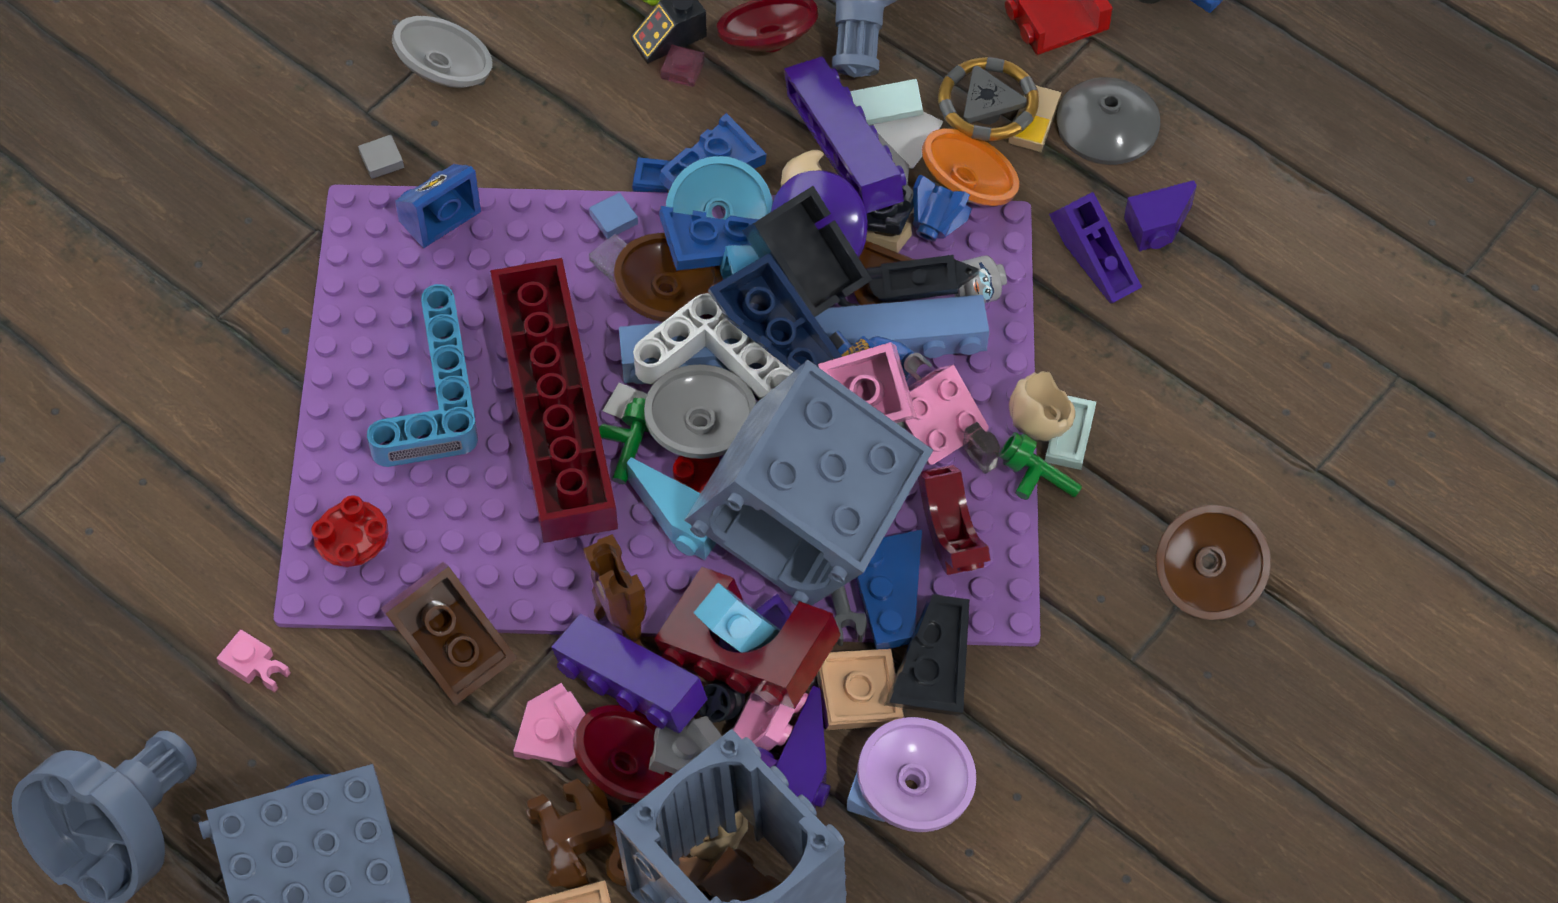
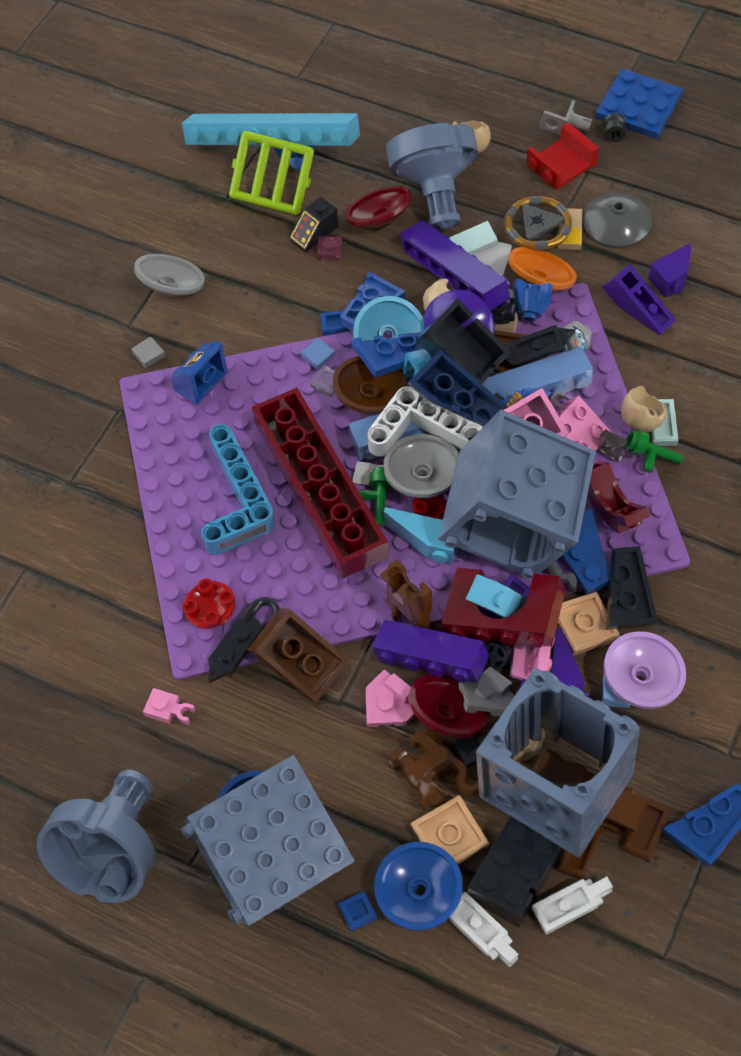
camera: 10 degrees left, 0 degrees up
(363, 600) = (237, 640): none -> black plate

